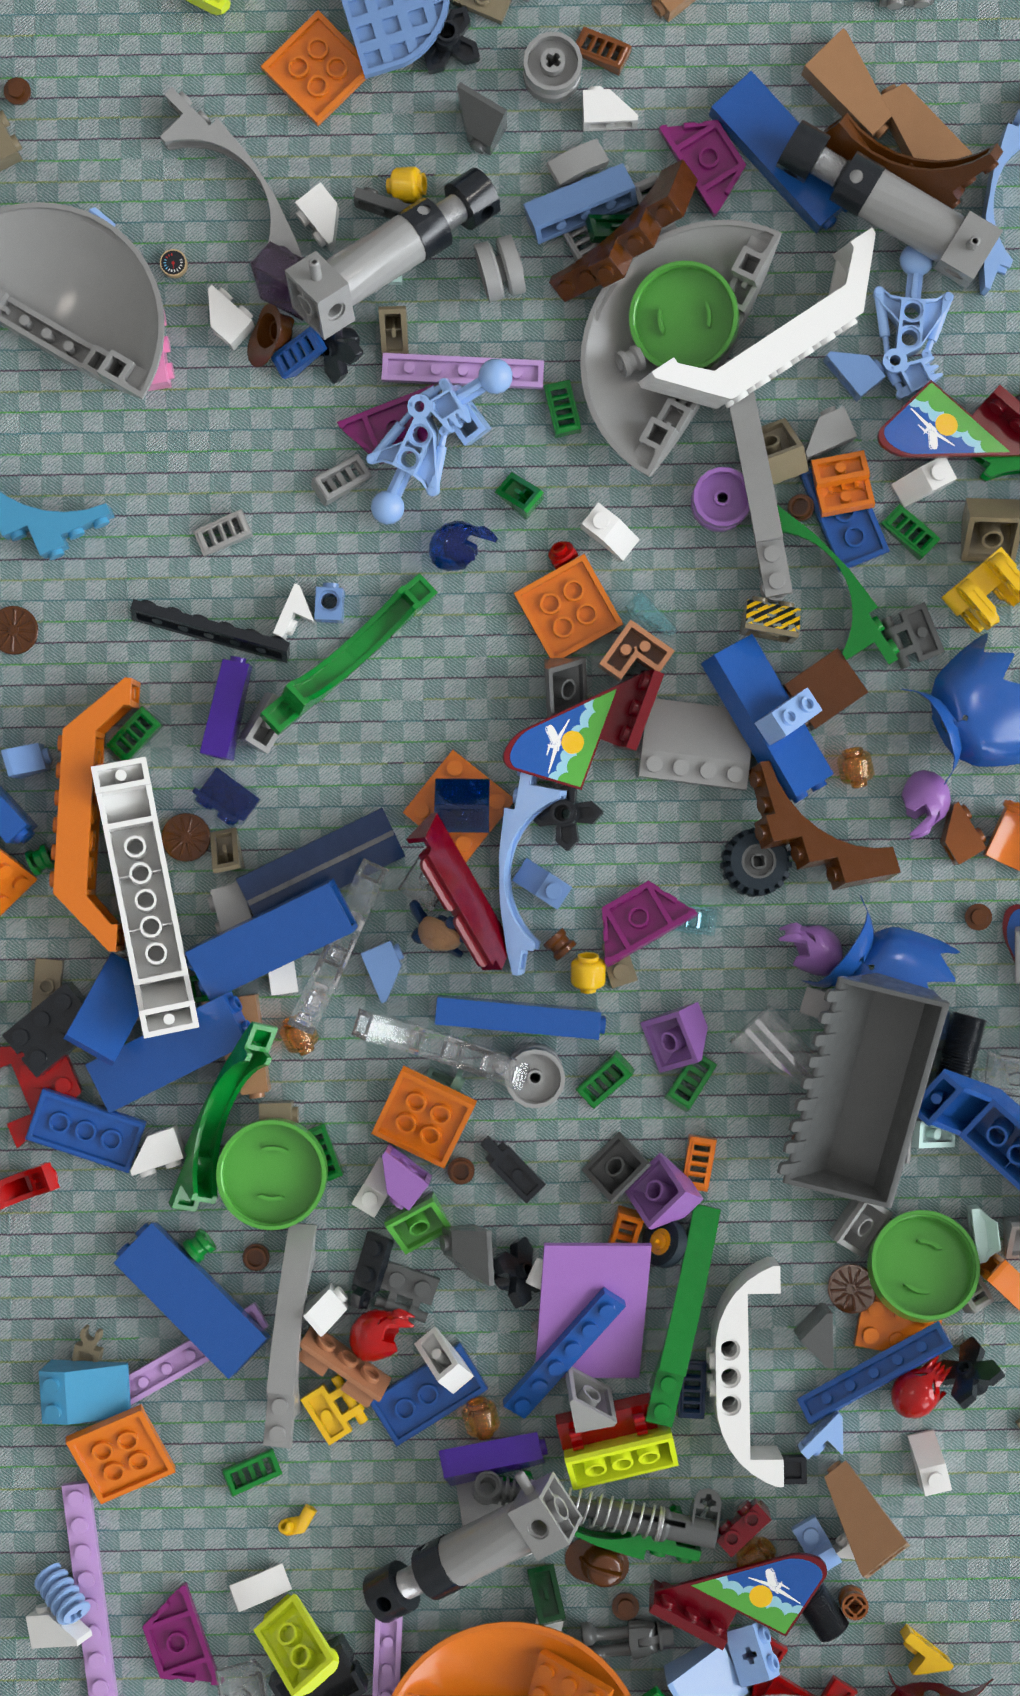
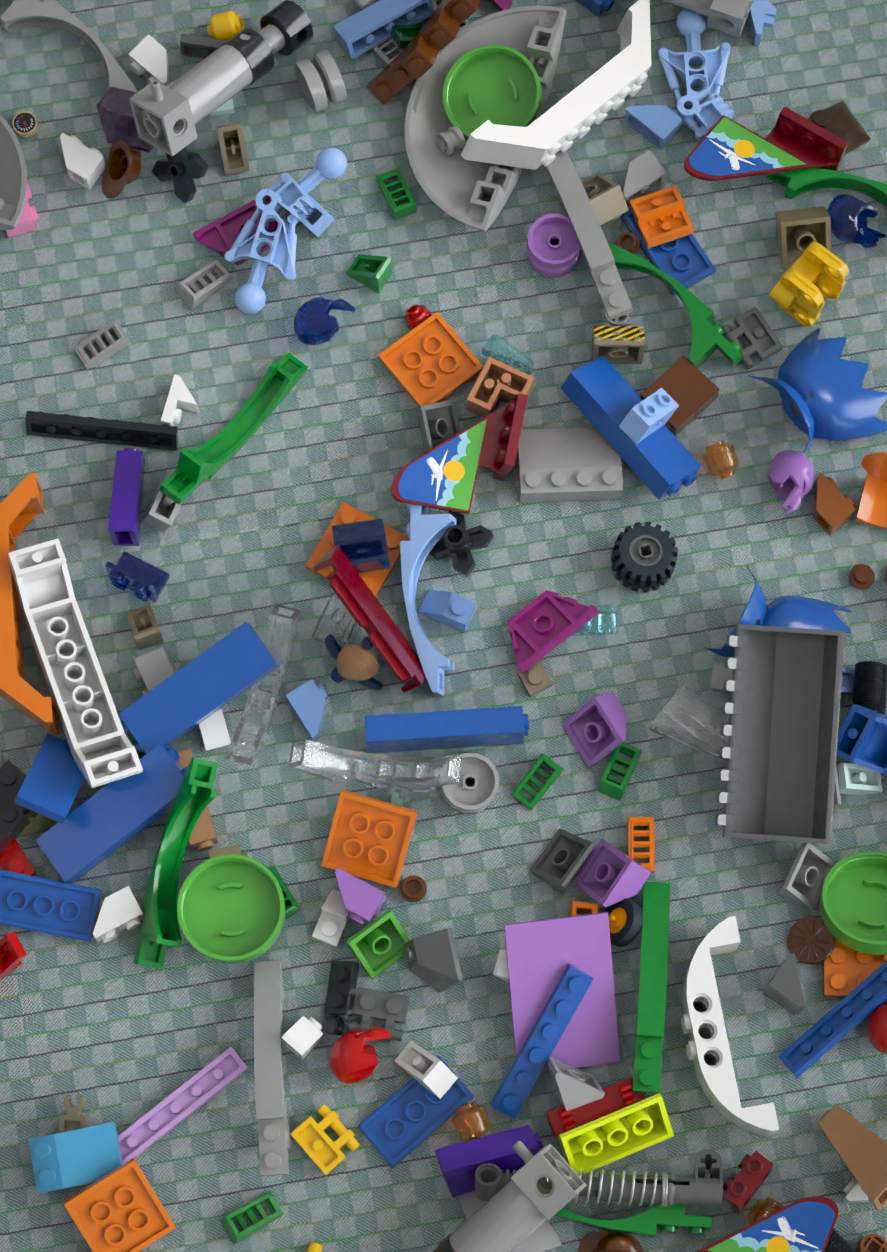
camera: 10 degrees left, 15 degrees down
(155, 725) = (41, 521): green slope -> none
(186, 837) = (104, 620): reddish brown wheel -> none
(191, 1298) = (169, 1048): blue brick -> none
(199, 1245) = (169, 999): green wheel -> none
(256, 1257) = (226, 1003): reddish brown plate -> none
(285, 360) = (138, 187): blue slope -> none
(297, 1040) = (237, 782): clear orange head -> none
(327, 857) = (248, 605): dark blue tile -> none
(333, 615) = (211, 400): medium blue brick -> none
(363, 1379) = (348, 1102): nougat brick -> none
(458, 369) = (260, 177): lavender plate -> none
(512, 1169) = (463, 878): black hinge -> none
(513, 1270) = (479, 971): black plant -> none
(559, 944) = (473, 661): reddish brown wheel -> none
(588, 972) = (504, 682): yellow head -> none
(609, 531) = (456, 289): white slope -> none
(693, 1413) = (684, 1071): dark blue slope -> none
(795, 1469) = (789, 1126): black plate -> none
(811, 847) = (692, 530): reddish brown arch -> none
(815, 1541) = (819, 1186): light blue slope -> none
(817, 948) = (712, 623): medium lavender helmet -> none
(828, 1429) = (817, 1081): light blue slope -> none
(910, 545) = (733, 261): green slope -> none
(924, 481) = (735, 204): white slope -> none

